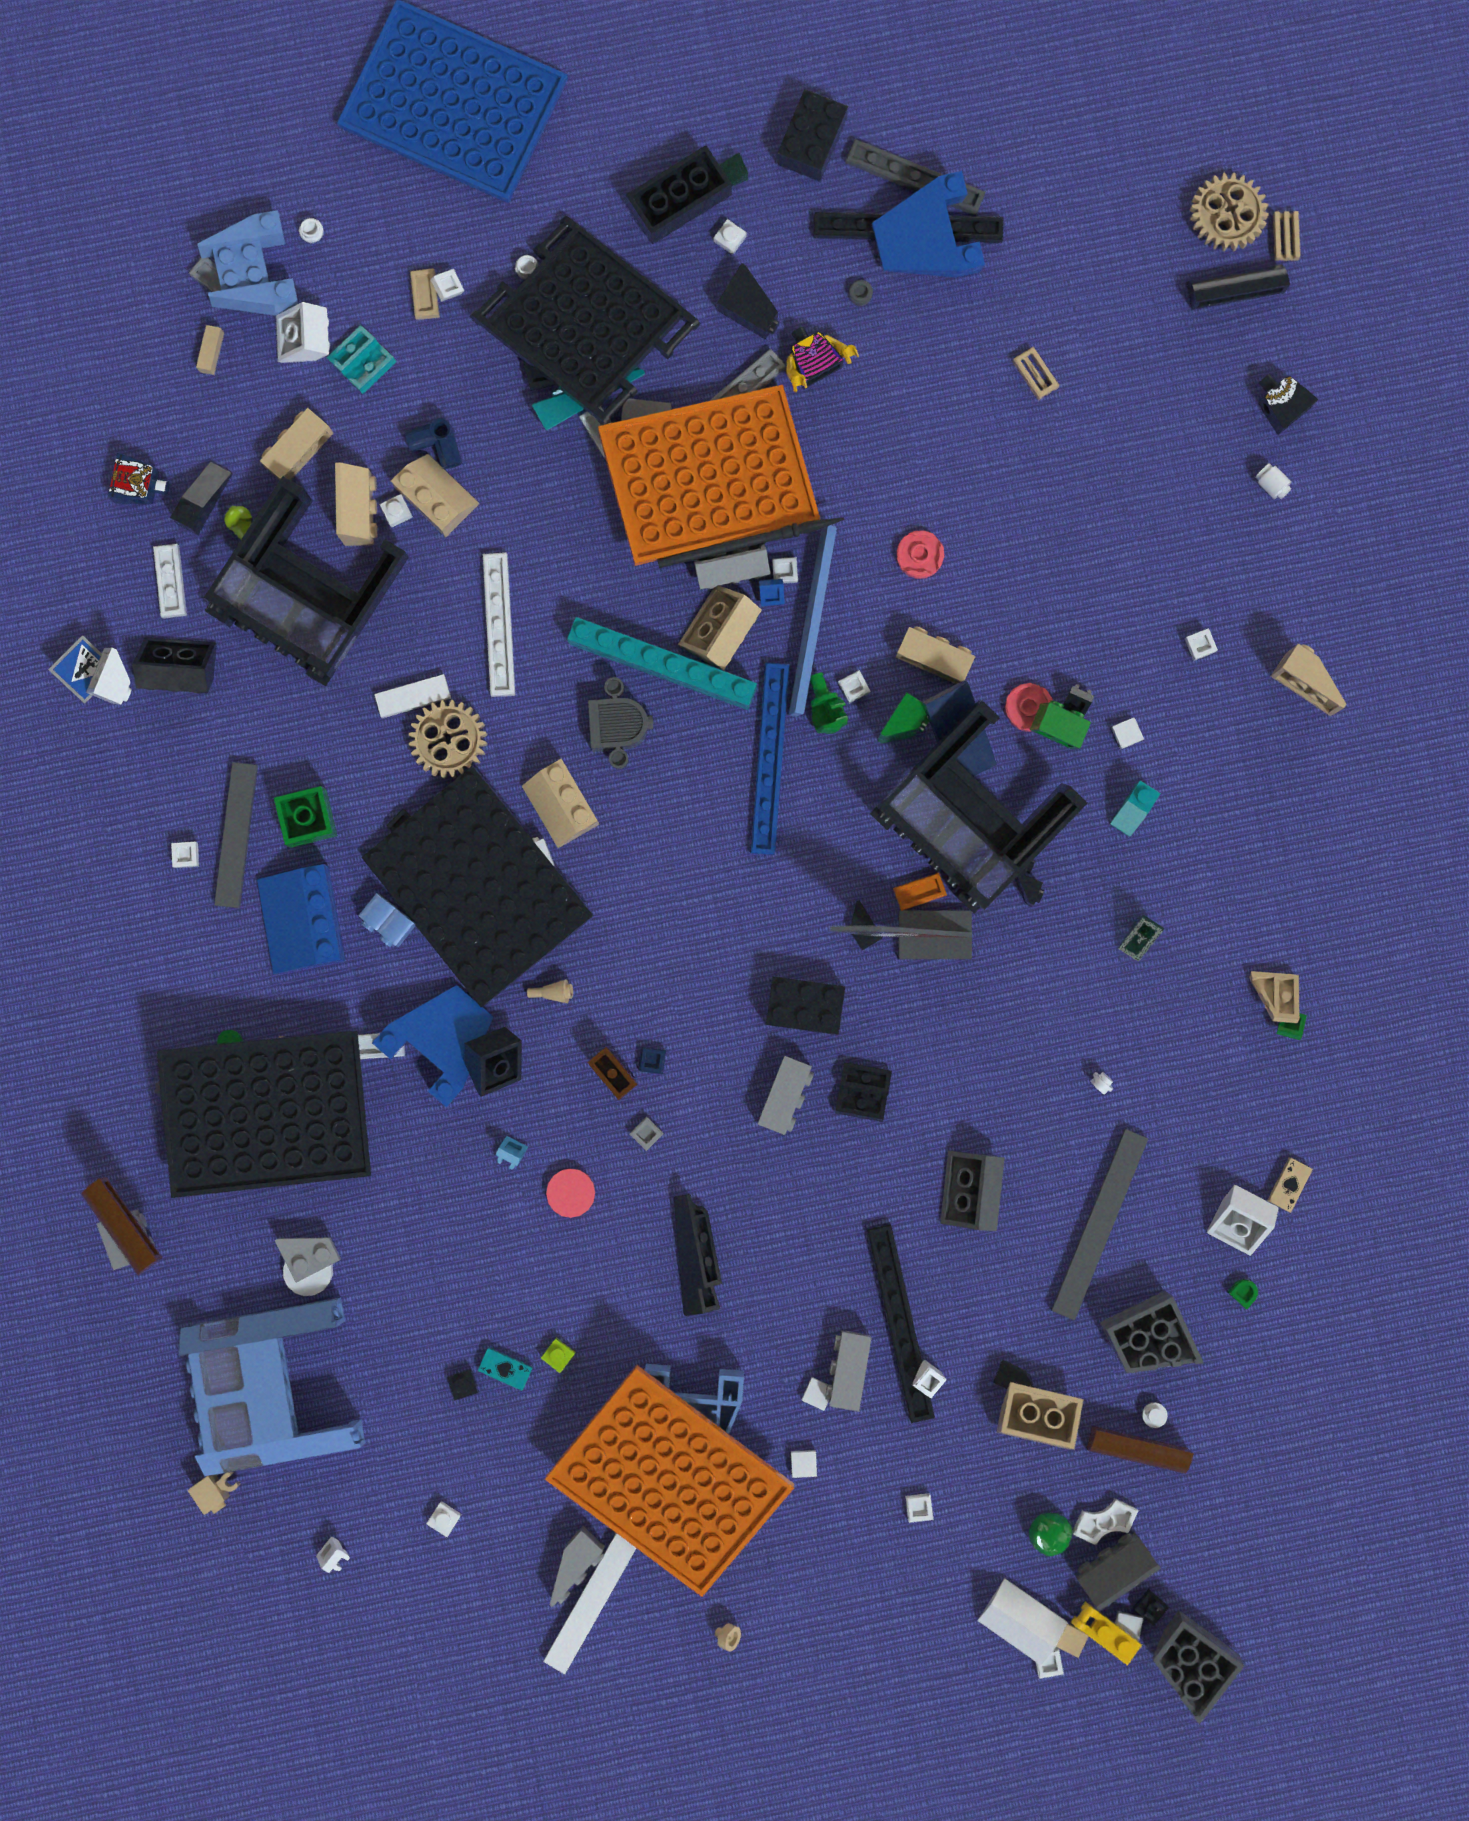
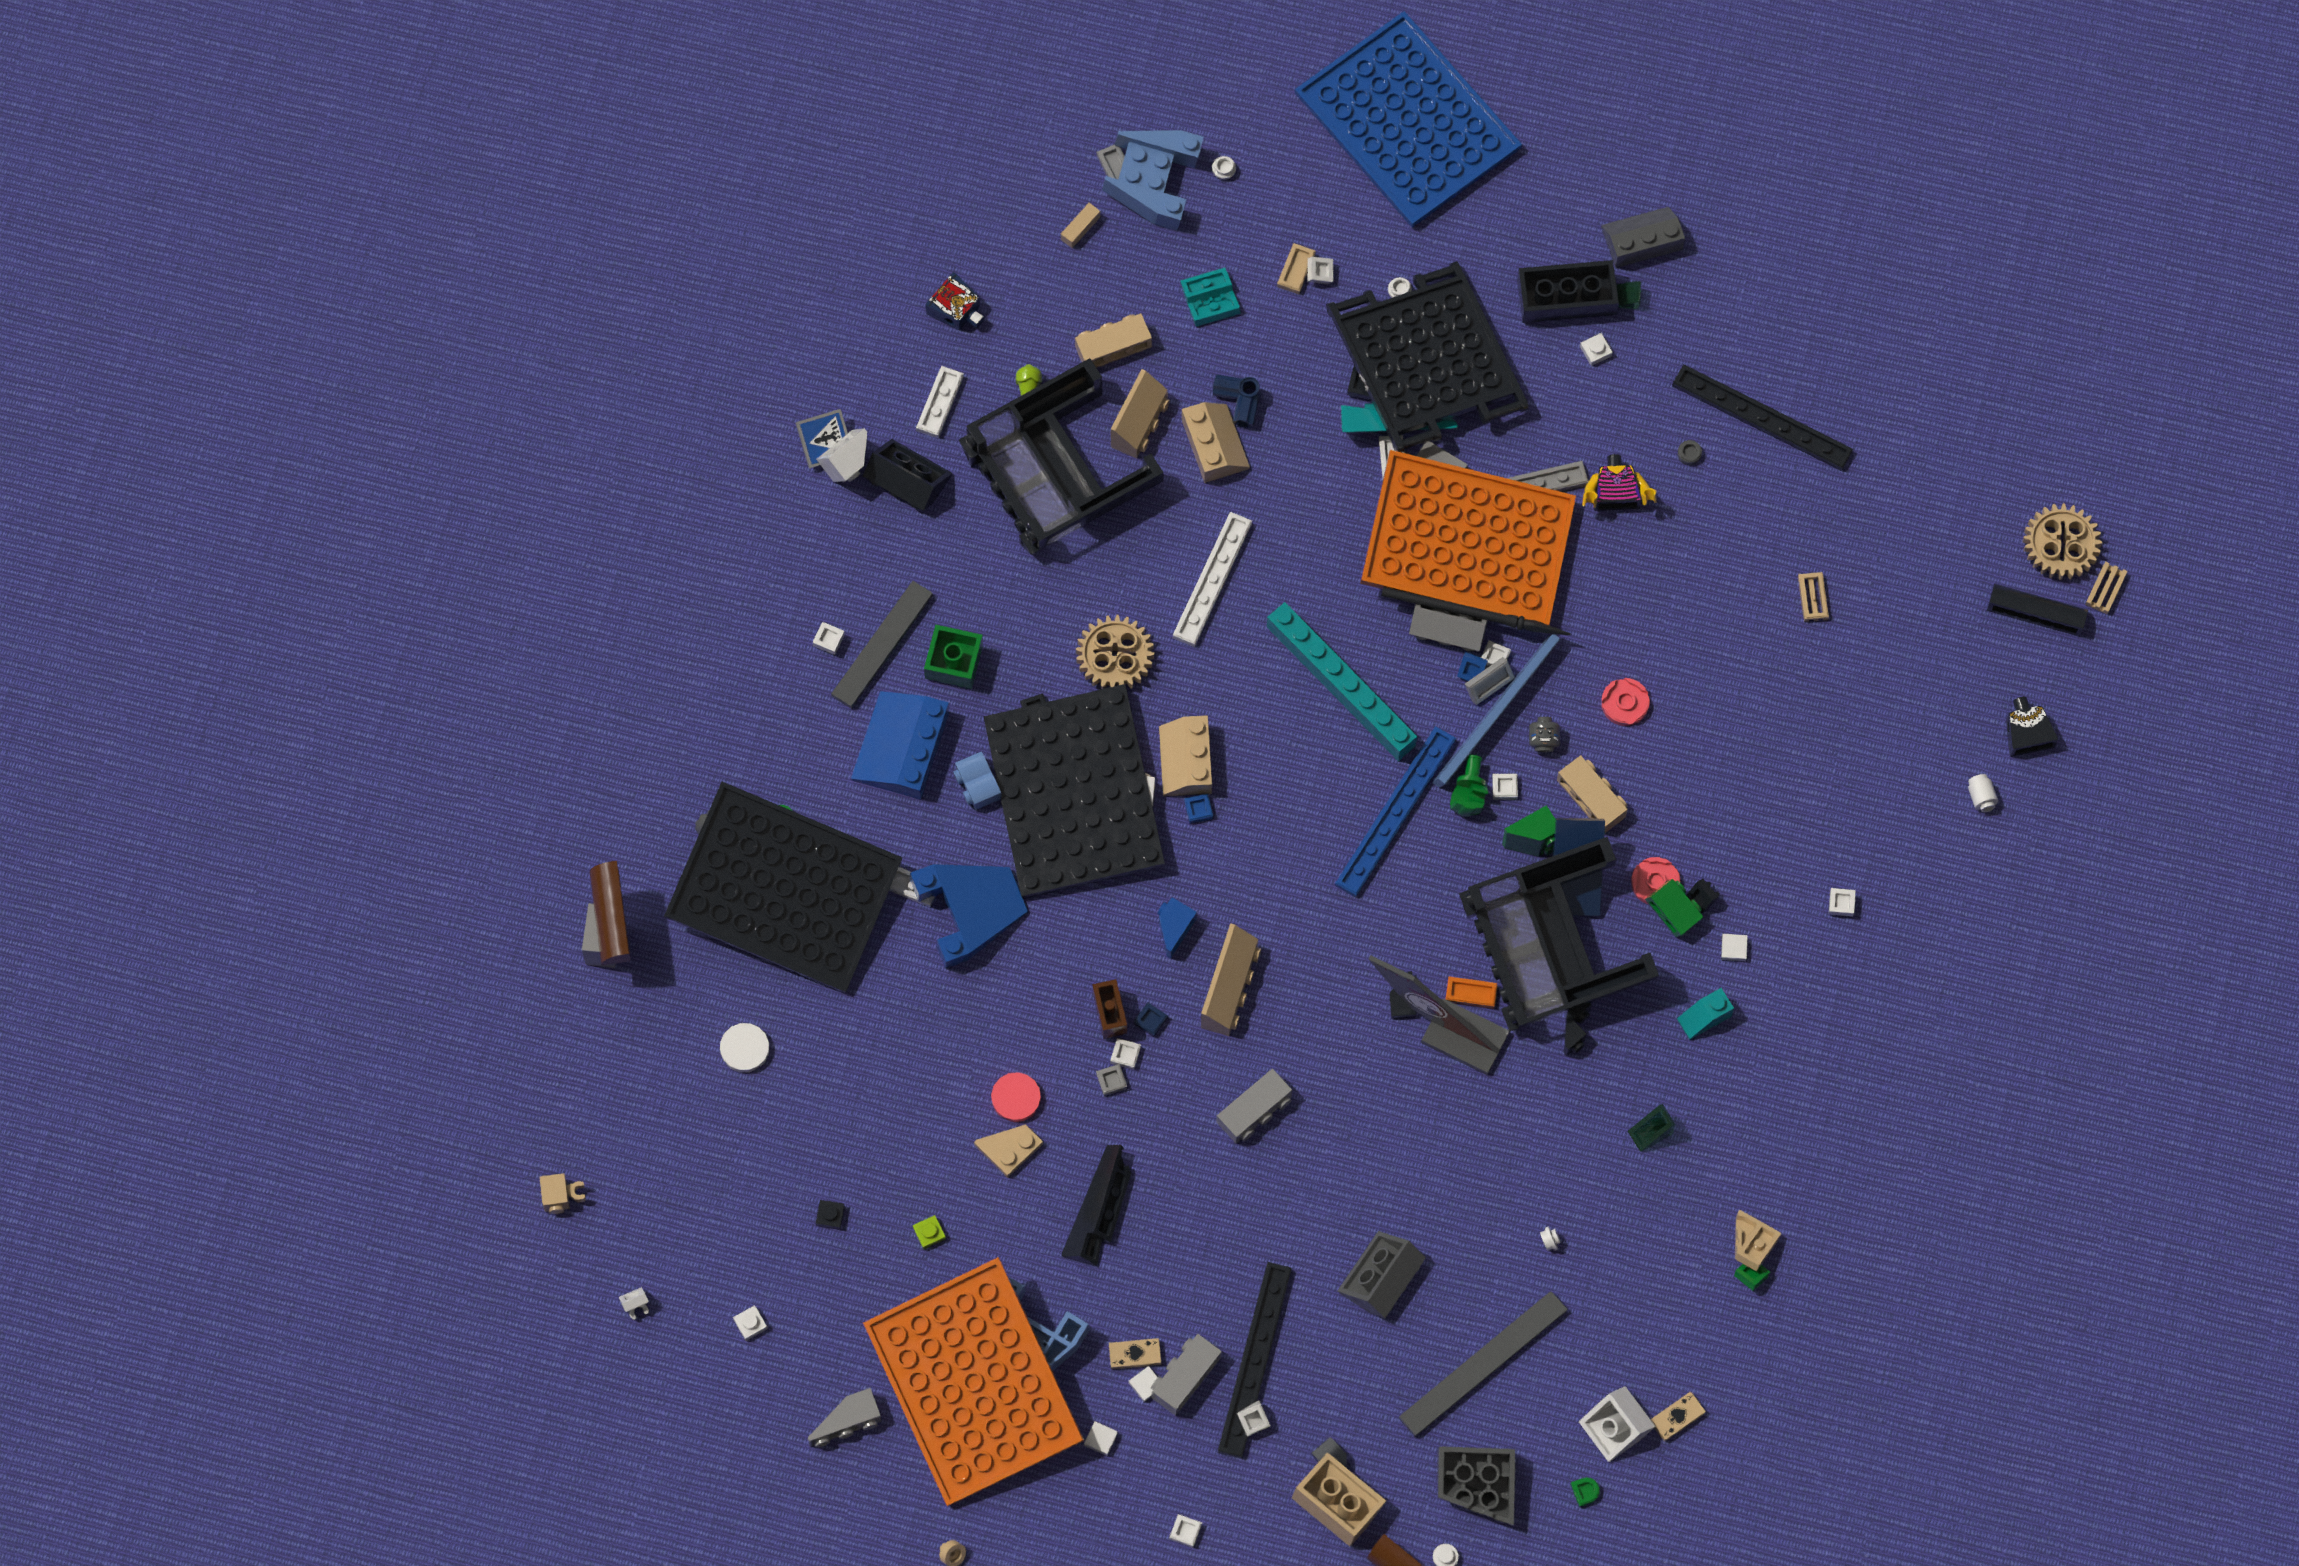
camera: 25 degrees right, 15 degrees down
(201, 498) = (1004, 346): black slope -> none
(247, 1392) = (637, 1123): medium blue piece -> none
(302, 333) = (1169, 250): white slope -> none
(307, 1255) = (753, 1031): light grey wing -> none
(396, 510) = (1172, 438): white plate -> none
(412, 696) = (1102, 602): white tile -> none
(494, 1060) = (1009, 945): black slope -> none
(505, 1368) = (875, 1220): teal tile -> none
(511, 1151) = (982, 1032): dark azure tile -> none
(558, 991) = (1098, 917): tan cone -> none
(589, 1242) = (1009, 1148): none -> tan wing
(590, 1604) = (843, 1462): white tile -> none
(595, 844) = (1198, 808): none -> blue tile
(617, 723) = (1273, 713): dark grey piece -> none
(629, 964) = (1174, 924): none -> blue slope
(646, 1103) = (1125, 1053): none -> white tile
(705, 993) = (1229, 981): none -> tan slope
(719, 108) = (1643, 236): none -> dark grey slope
(720, 626) = (1410, 675): tan slope -> none
(748, 304) = (1581, 413): black slope -> none
(792, 596) = (1489, 680): none -> light grey tile
(794, 1372) = (1134, 1353): none -> tan tile
(805, 1005) = (1314, 1037): black brick -> none
(812, 135) = (1715, 298): black brick -> none
(863, 1092) = (1327, 1140): black slope -> none
(866, 622) = (1544, 734): none -> dark grey head
(905, 173) = (1791, 378): dark grey tile -> none
(919, 233) = (1766, 425): blue wedge -> none
(1307, 677) = (1919, 969): tan slope -> none

